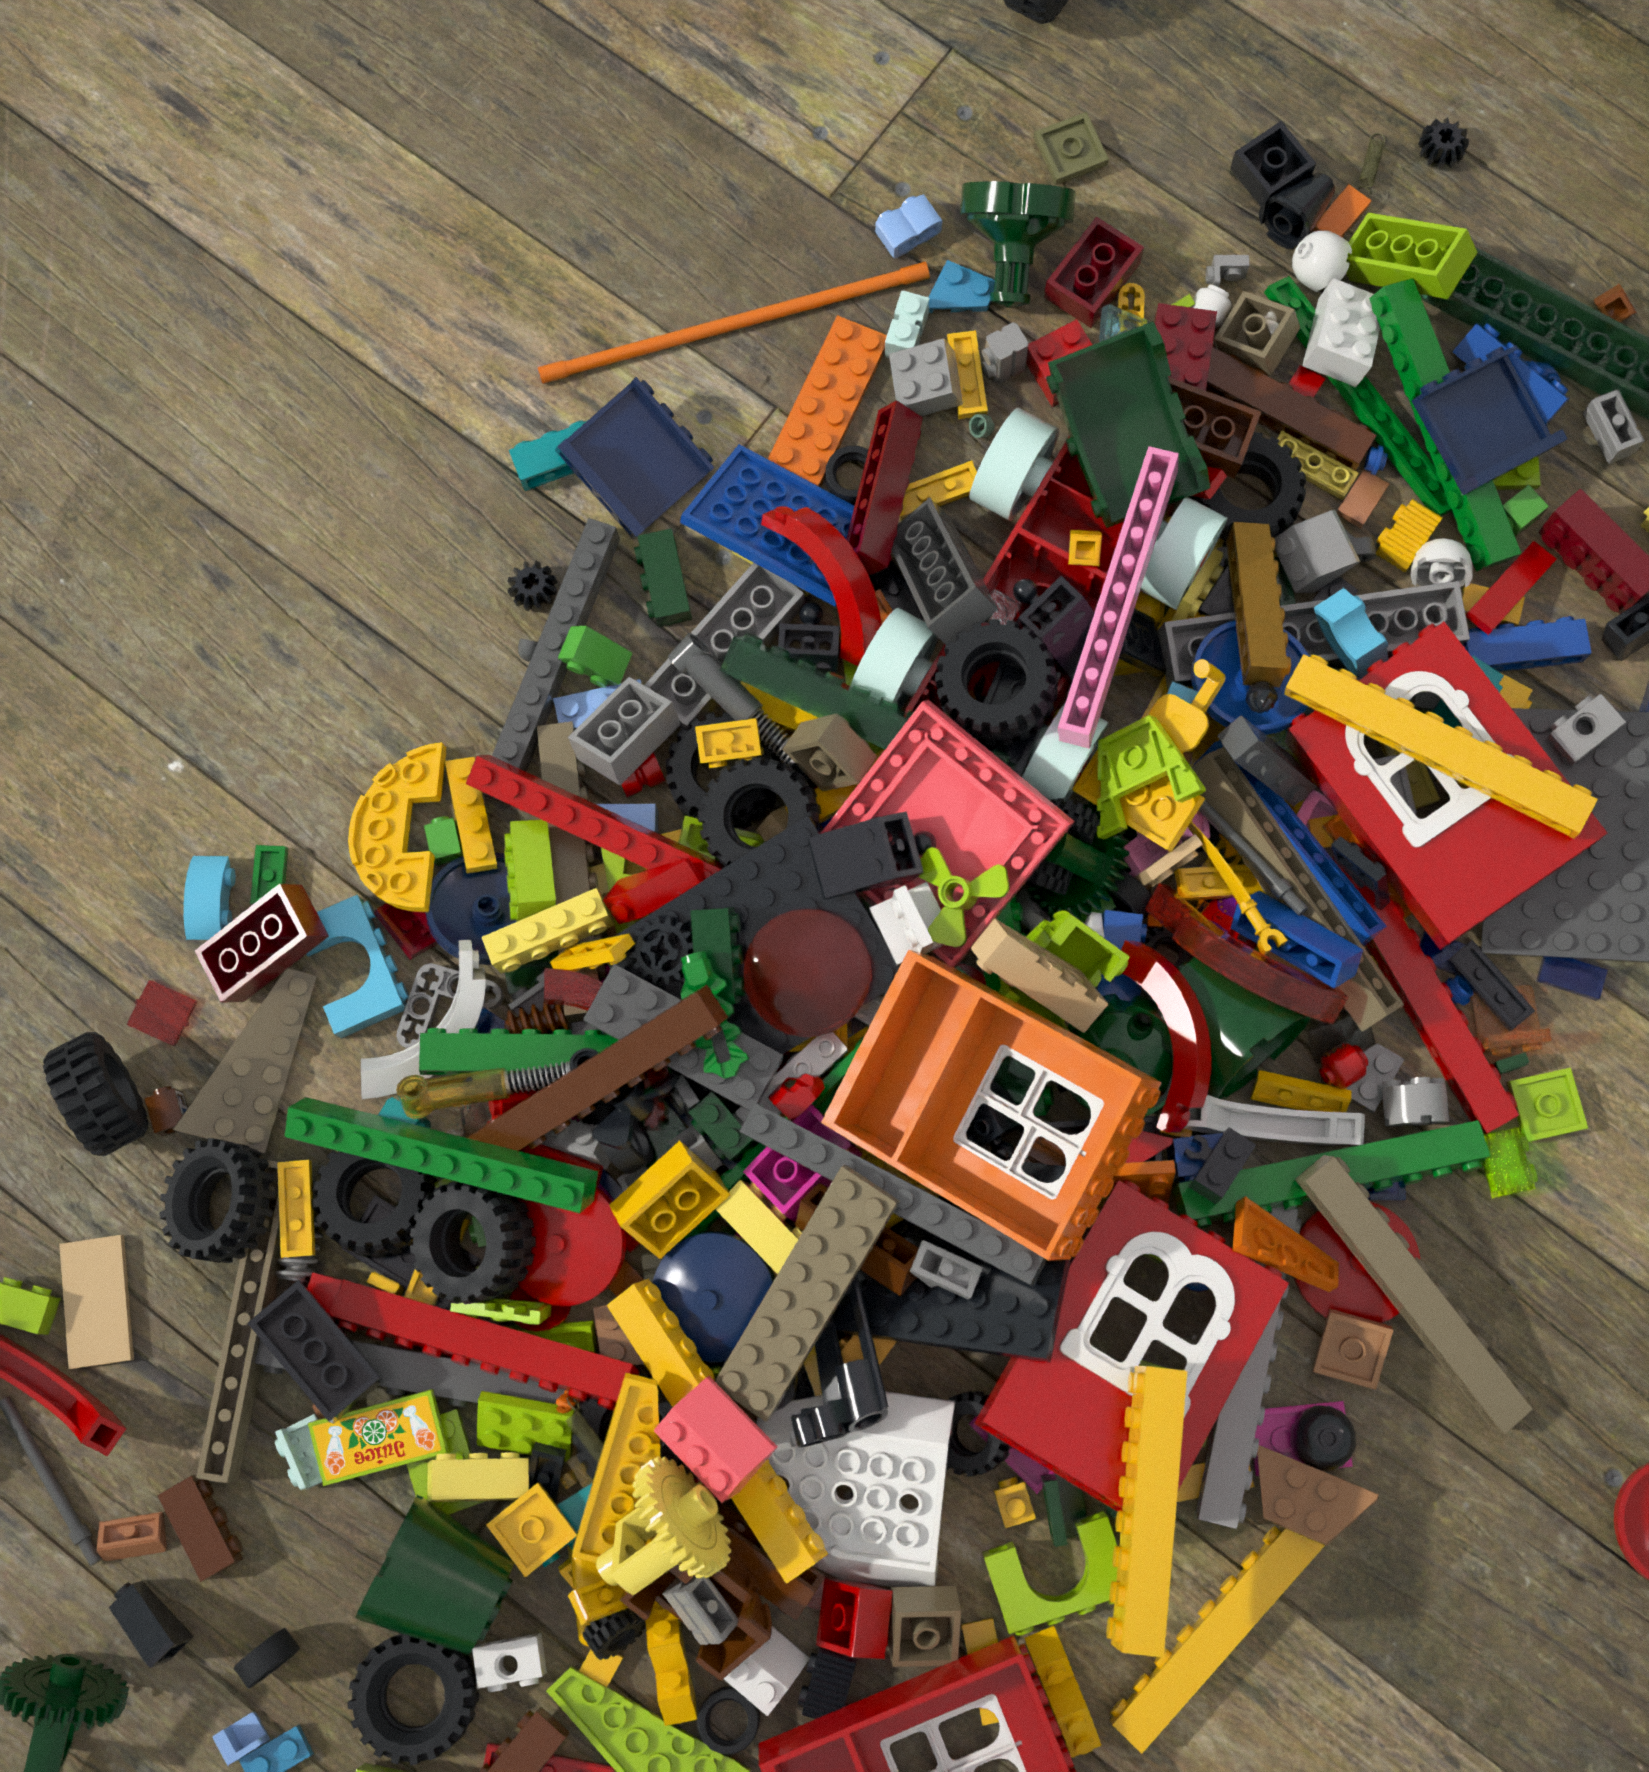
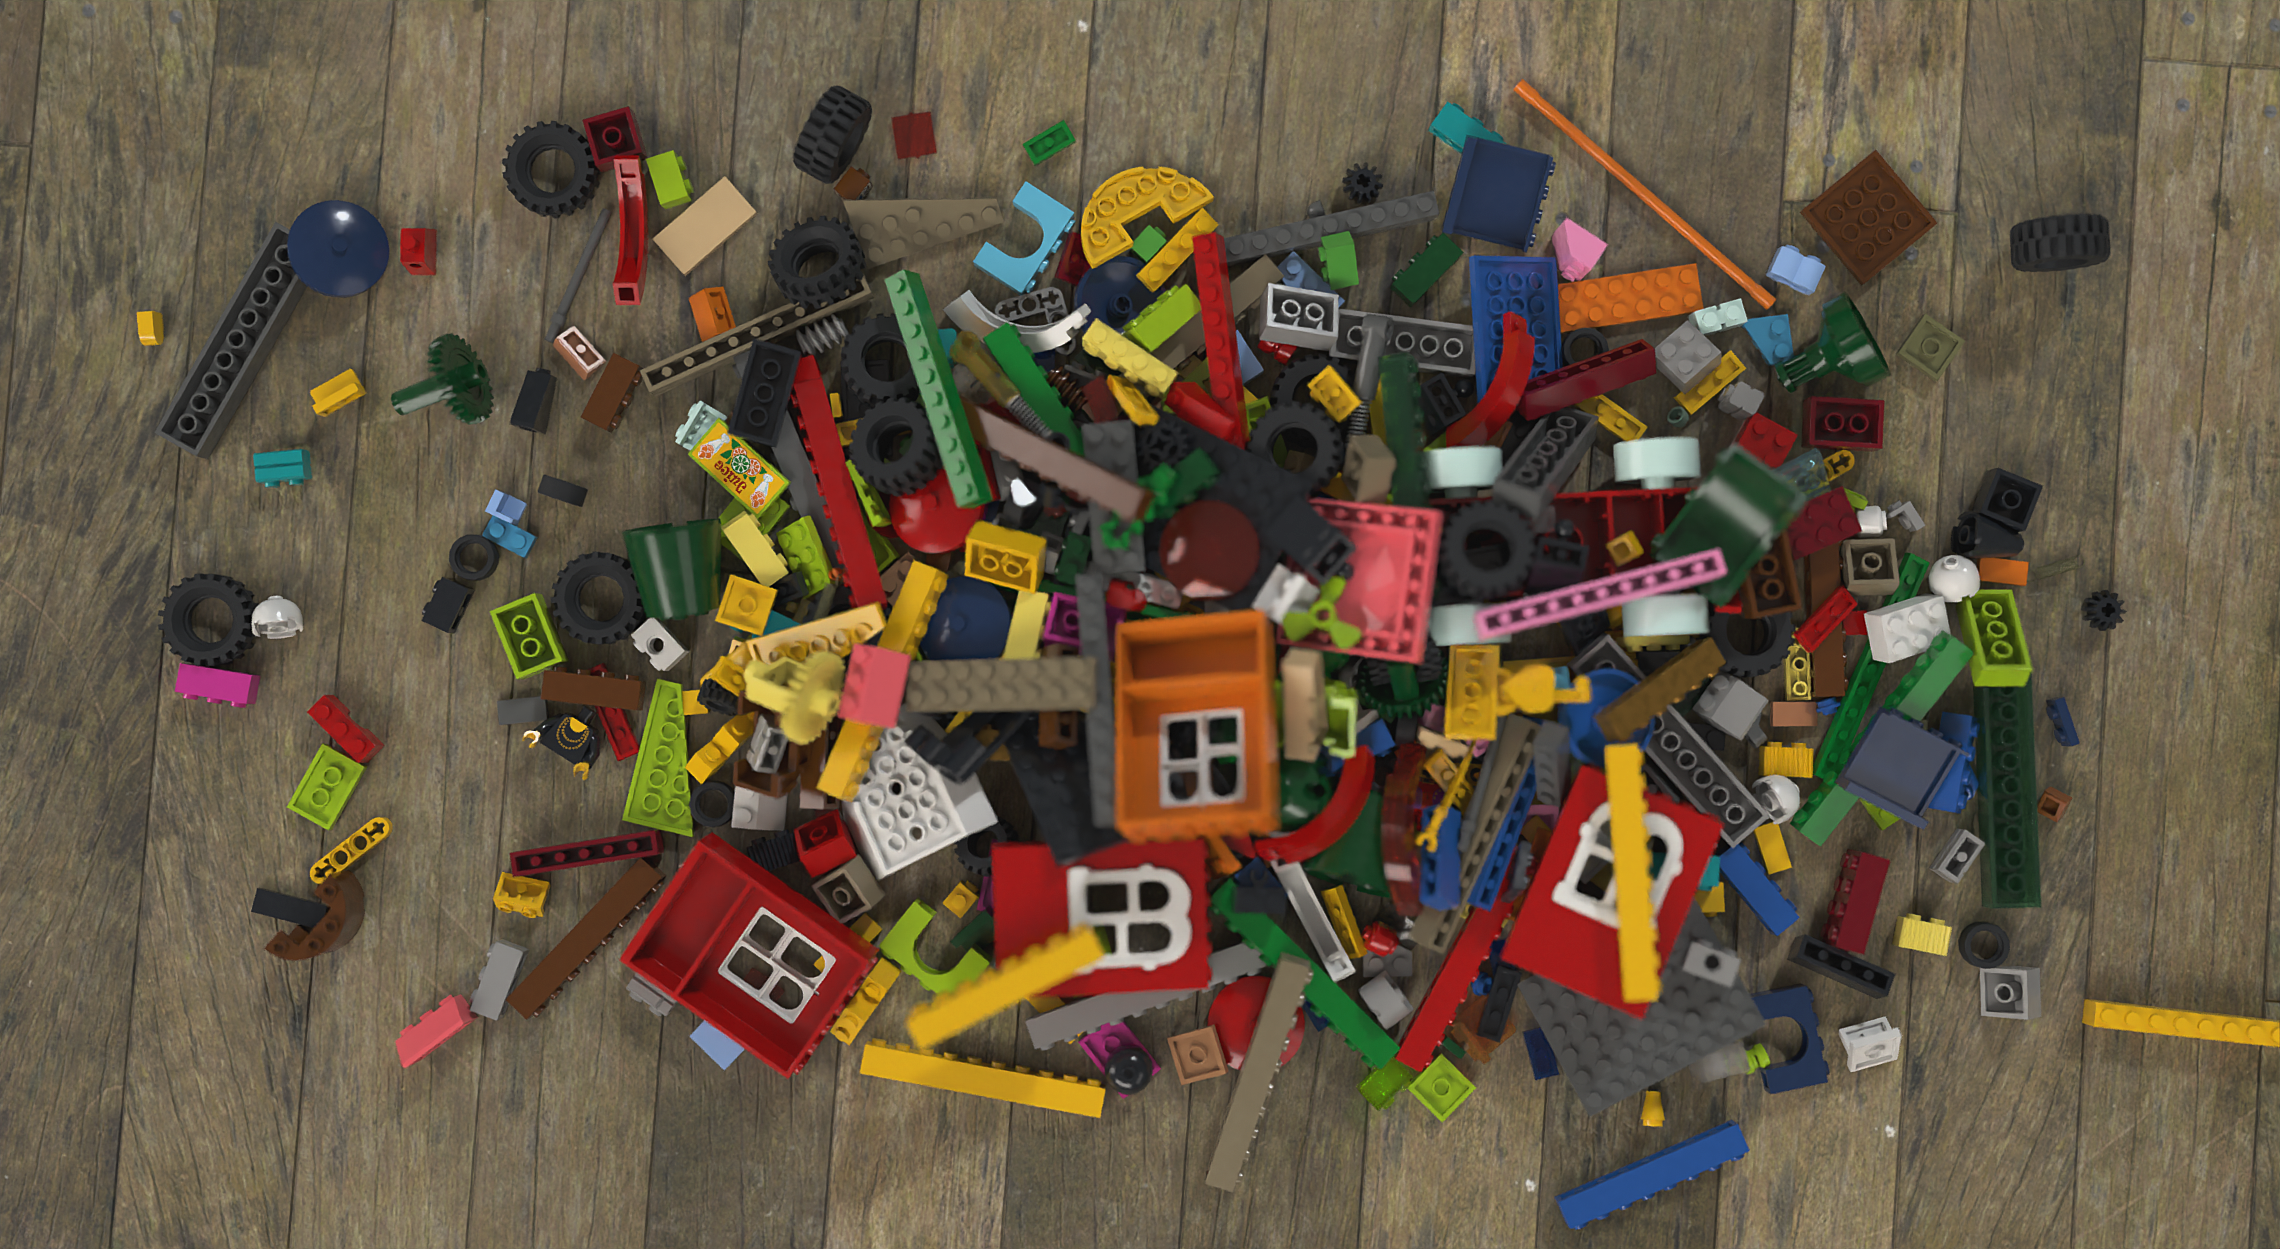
camera: 50 degrees right, 10 degrees up
(190, 1355) = (711, 312): none -> orange panel
(207, 896) = (1007, 113): medium azure brick -> none
(261, 943) = (1000, 172): dark red brick -> none
(296, 1209) = (845, 317): yellow plate -> none
(744, 415) = (1575, 250): none -> bright pink slope
(902, 129) = (1868, 217): none -> reddish brown plate
(946, 1270) = (1073, 765): light grey slope -> none
(1133, 760) = (1492, 675): lime wing -> none
(1261, 697) = (1592, 733): black plate -> none
(1275, 1244) = (1230, 969): orange wing -> none
(1284, 404) = (1825, 619): none -> red tile
(1308, 1498) = (1083, 1082): medium nougat wing -> none
(1351, 632) = (1681, 766): medium azure brick -> none
(1510, 587) = (1791, 854): red tile -> none
(1524, 509) = (1854, 829): bright green brick -> none
(1534, 246) = (2064, 727): none -> dark blue plate

